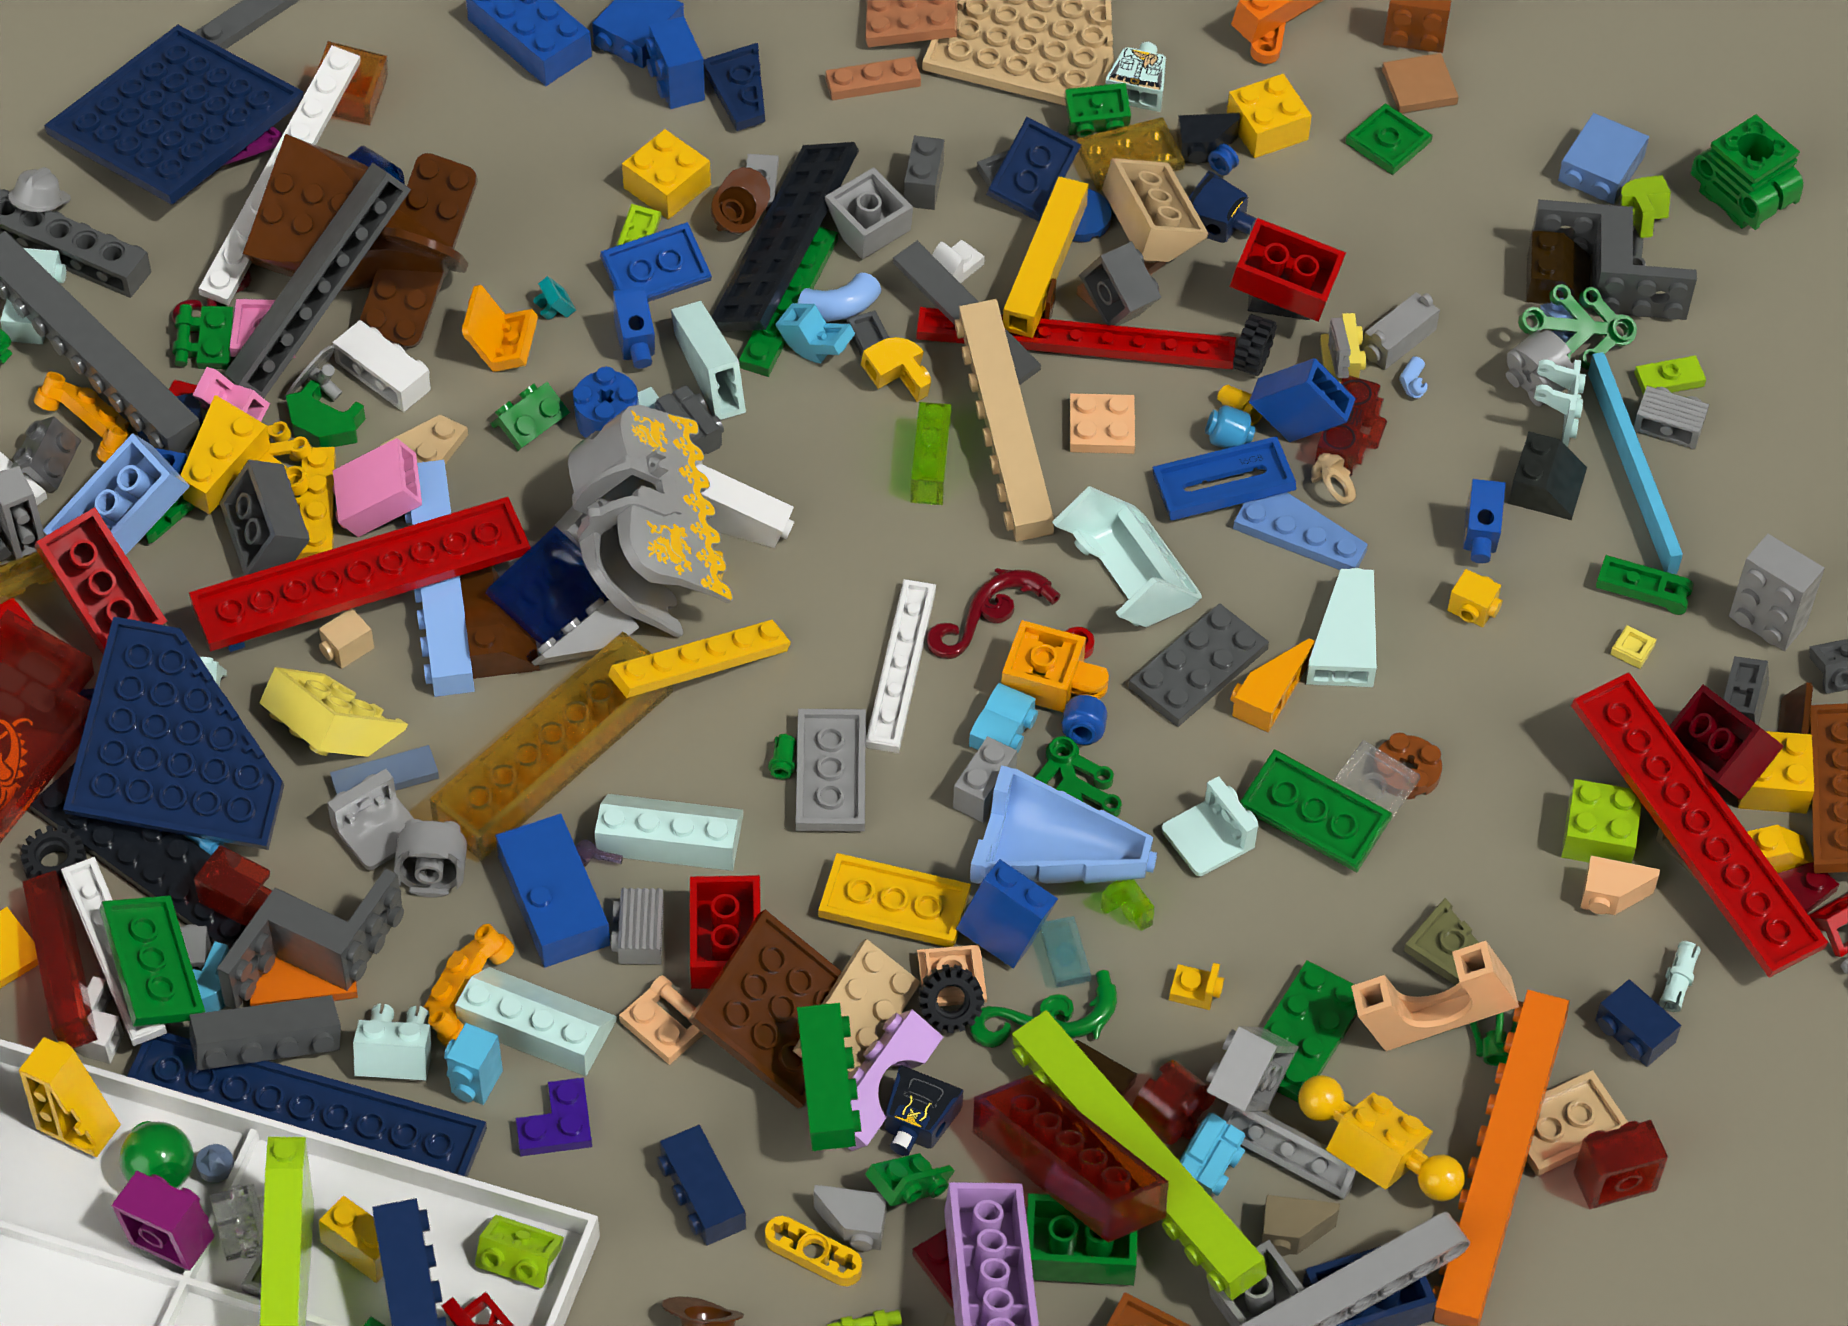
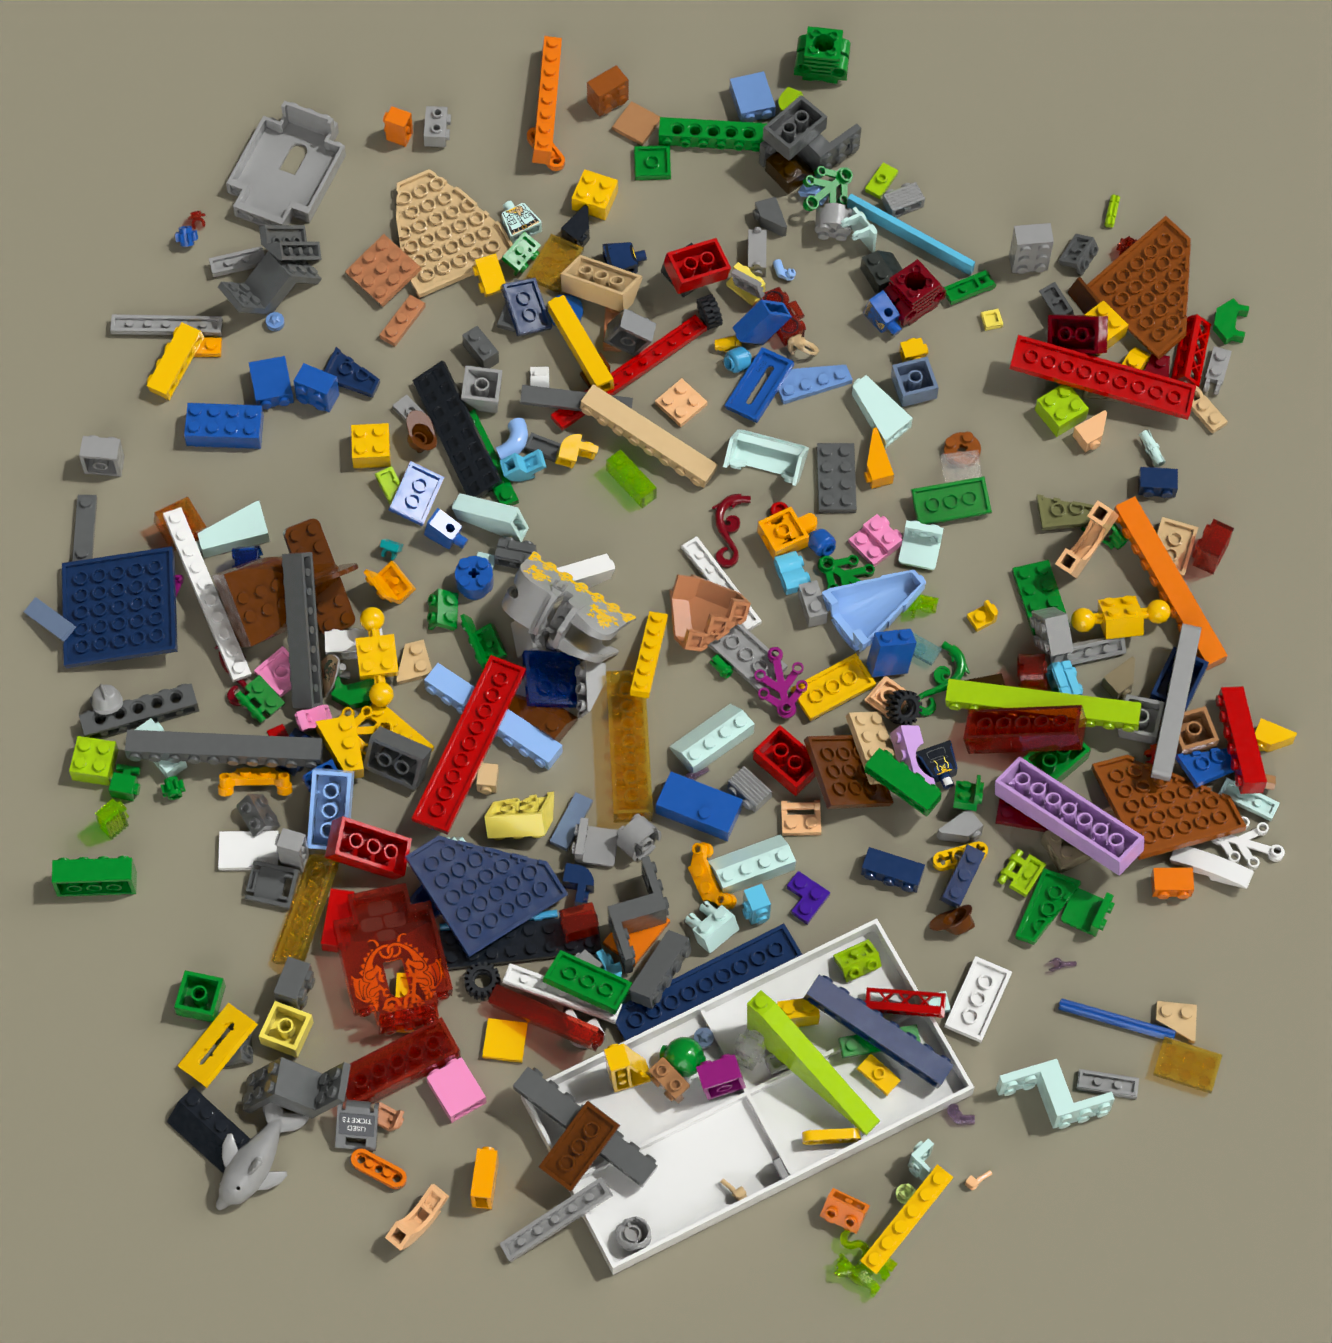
camera: 45 degrees left, 10 degrees up
(90, 68) = (49, 619): none -> sand blue tile
(100, 1167) = (671, 1081): none -> medium nougat bracket
(304, 850) = (580, 879): none -> dark blue brick
(376, 389) = (376, 656): none -> yellow brick
(377, 487) = (425, 701): bright pink brick -> none
(399, 136) = (237, 530): none -> light aqua slope
(531, 483) = (484, 641): none -> green bracket
(776, 1271) = (962, 876): none -> dark blue brick
(828, 838) = (781, 685): none -> magenta plant
(832, 670) = (704, 611): none -> nougat panel
(1030, 97) = (489, 275): none -> yellow brick
(1161, 777) = (876, 540): none -> bright pink plate
(1223, 159) = (597, 232): blue bush -> none
(1432, 630) = (914, 381): none -> sand blue brick
(1469, 302) = (770, 216): none -> dark grey slope
(1495, 154) = (705, 128): none -> green brick
(1551, 524) = (914, 292): none -> dark red piece
(1598, 206) = (794, 127): none -> dark grey brick
(1816, 996) = (1207, 412): none -> tan hinge

